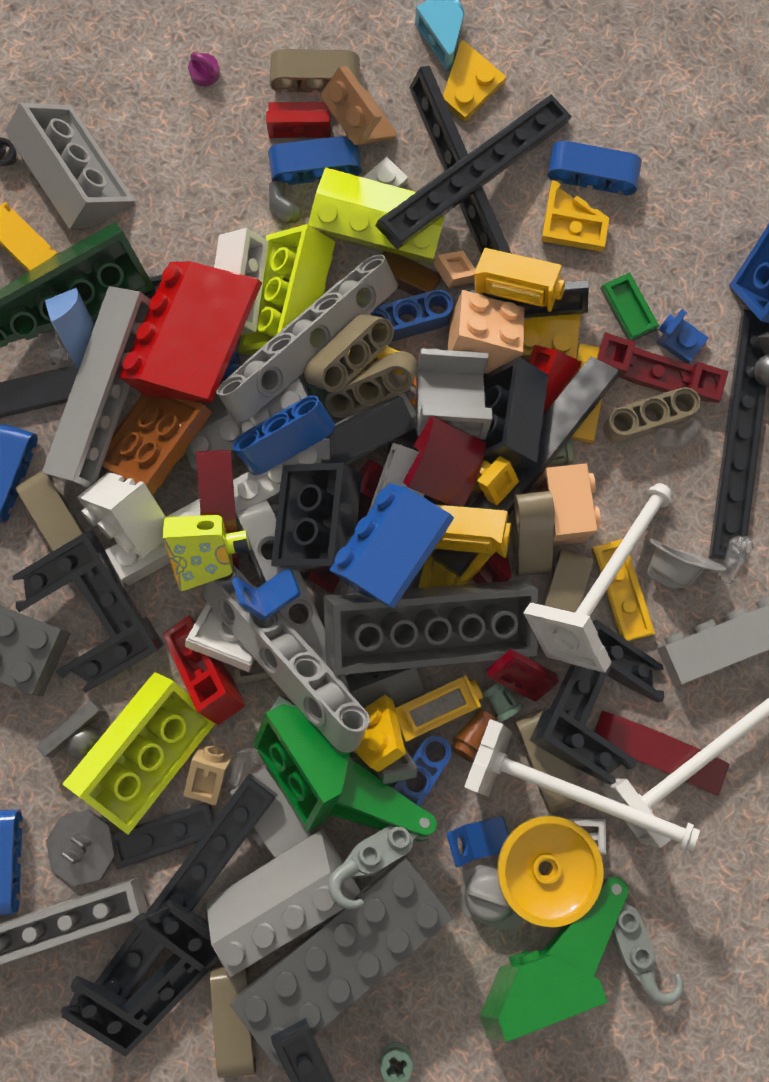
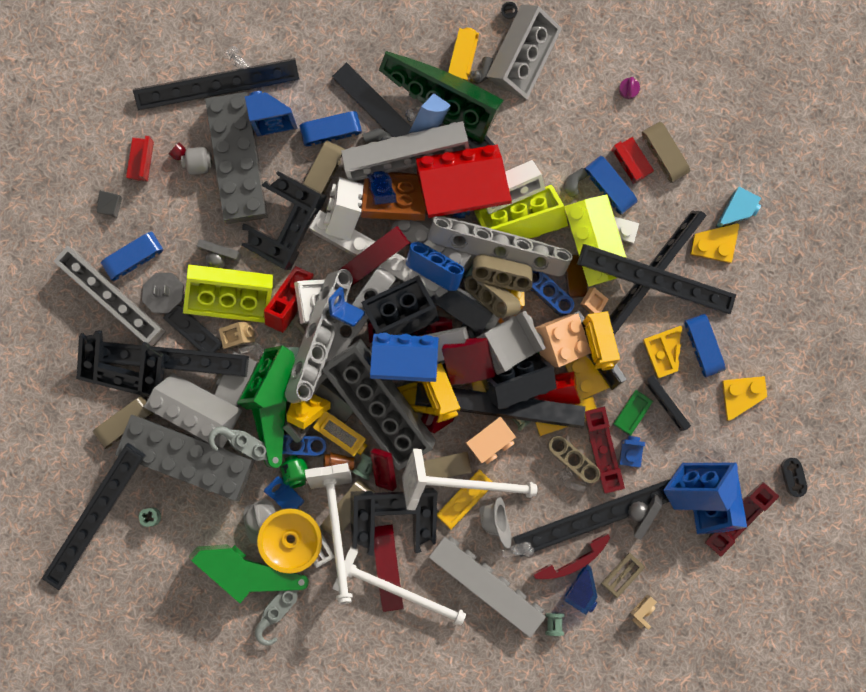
camera: 60 degrees right, 5 degrees up
(52, 419) = (376, 135): none -> dark grey arm
(63, 235) = (480, 75): none -> dark grey arm
(129, 447) = (381, 188): none -> clear blue slope
(201, 548) = (348, 260): neon yellow torso -> none
(356, 109) = (653, 192): medium nougat bracket -> none
(453, 805) = (294, 471): none -> green head
(497, 479) = (478, 393): yellow tile -> none
(533, 532) = (463, 430): dark tan beam -> none
(643, 255) = (667, 403): none -> black tile
(684, 162) = (742, 394): none -> yellow wing

